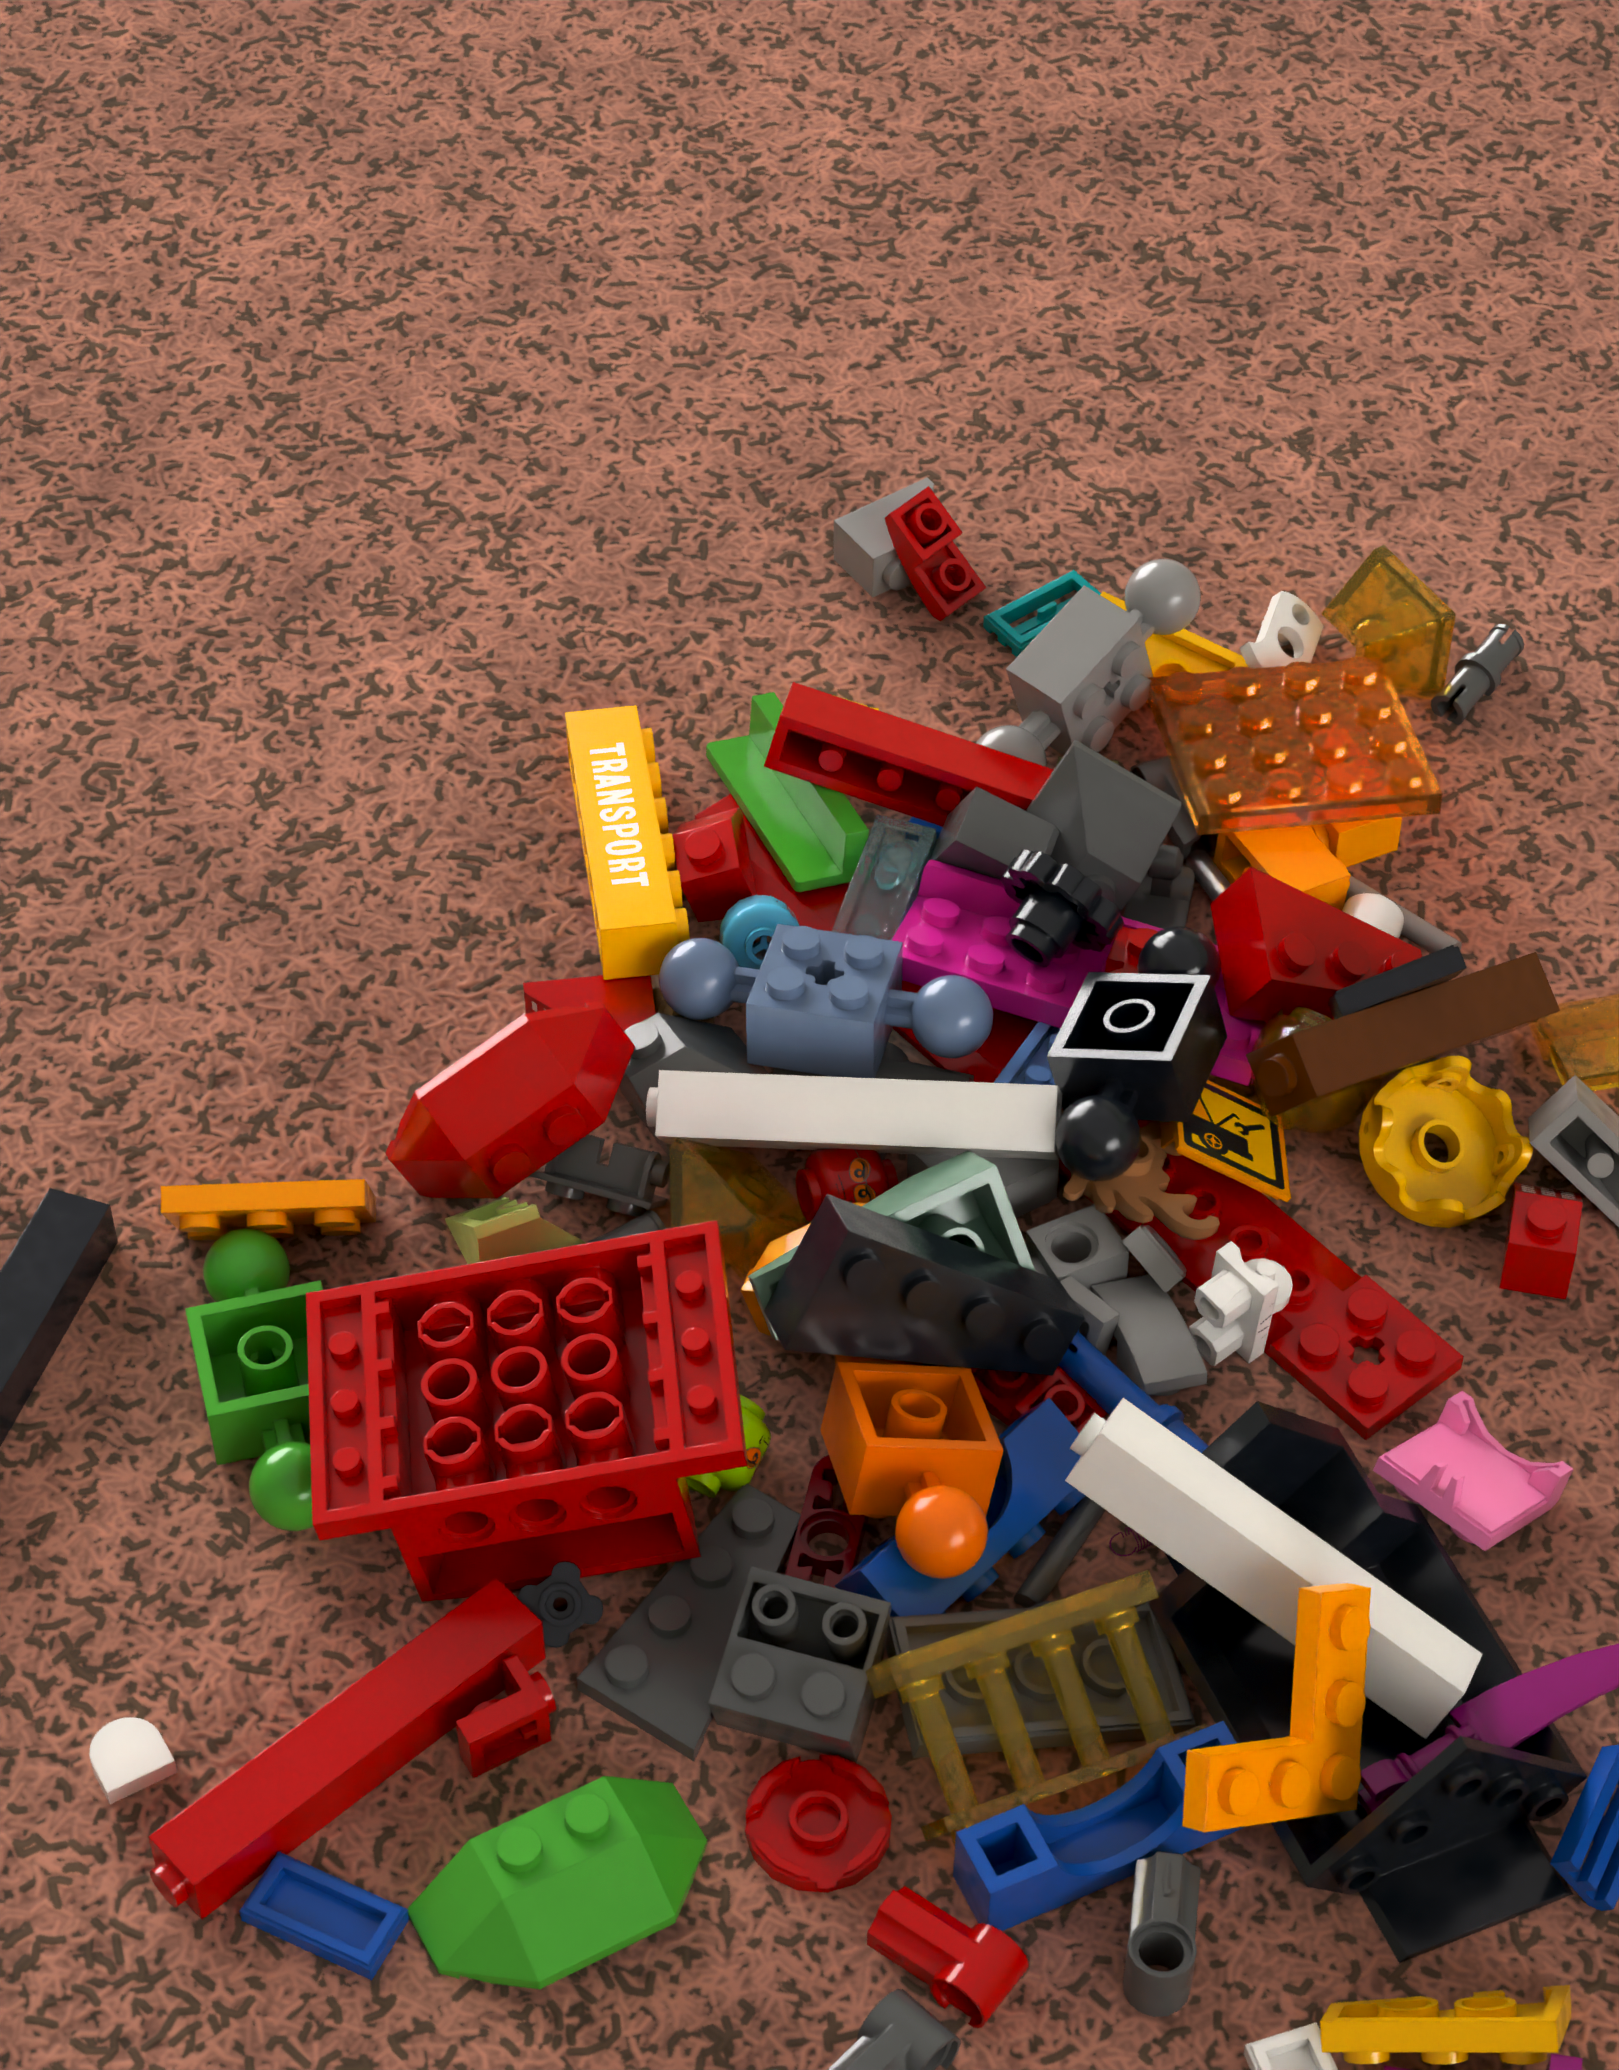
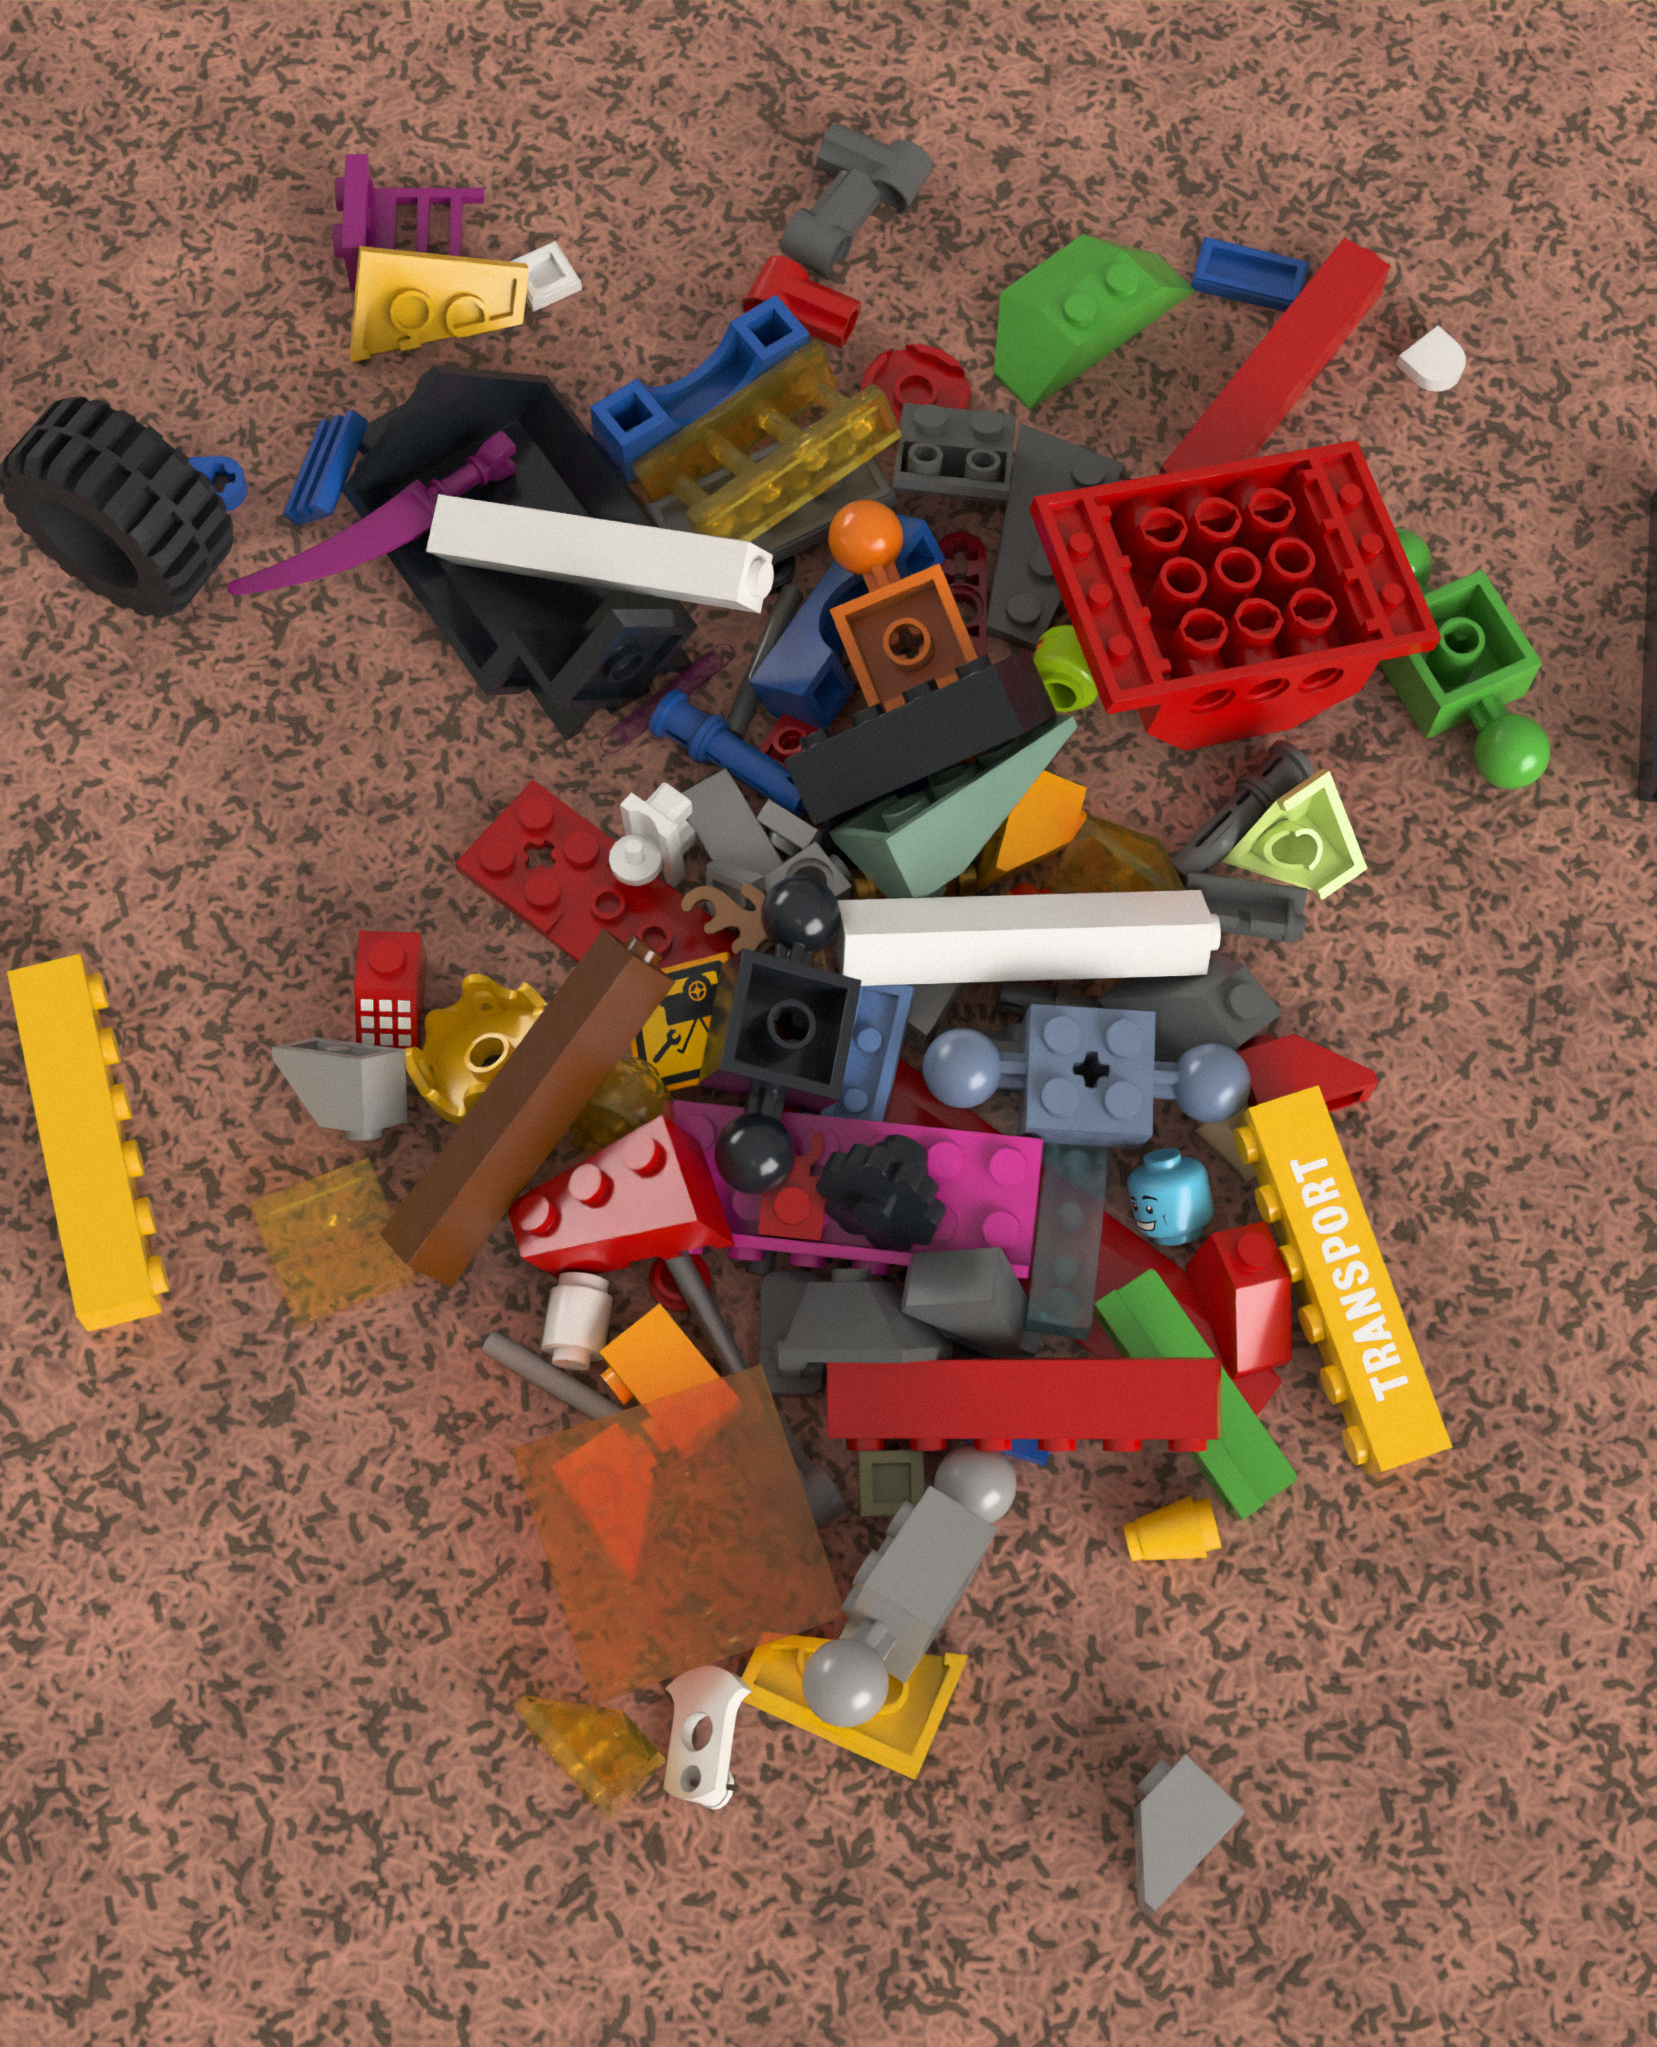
camera: 165 degrees right, 20 degrees up
(269, 1207) = (1516, 802): light orange plate -> none
(509, 1726) = (1163, 415): red bracket -> none
(512, 1103) = (1330, 903): red wedge -> none
(925, 545) = (1118, 1781): red slope -> none
(1041, 599) = (940, 1804): teal tile -> none
(1162, 1934) = (649, 338): dark grey piece -> none
(1320, 1761) = (545, 445): light orange plate -> none
(1398, 982) = (543, 1112): black tile -> none
(1471, 1477) = (443, 734): bright pink piece -> none
(1477, 674) = (482, 1744): dark grey pin -> none

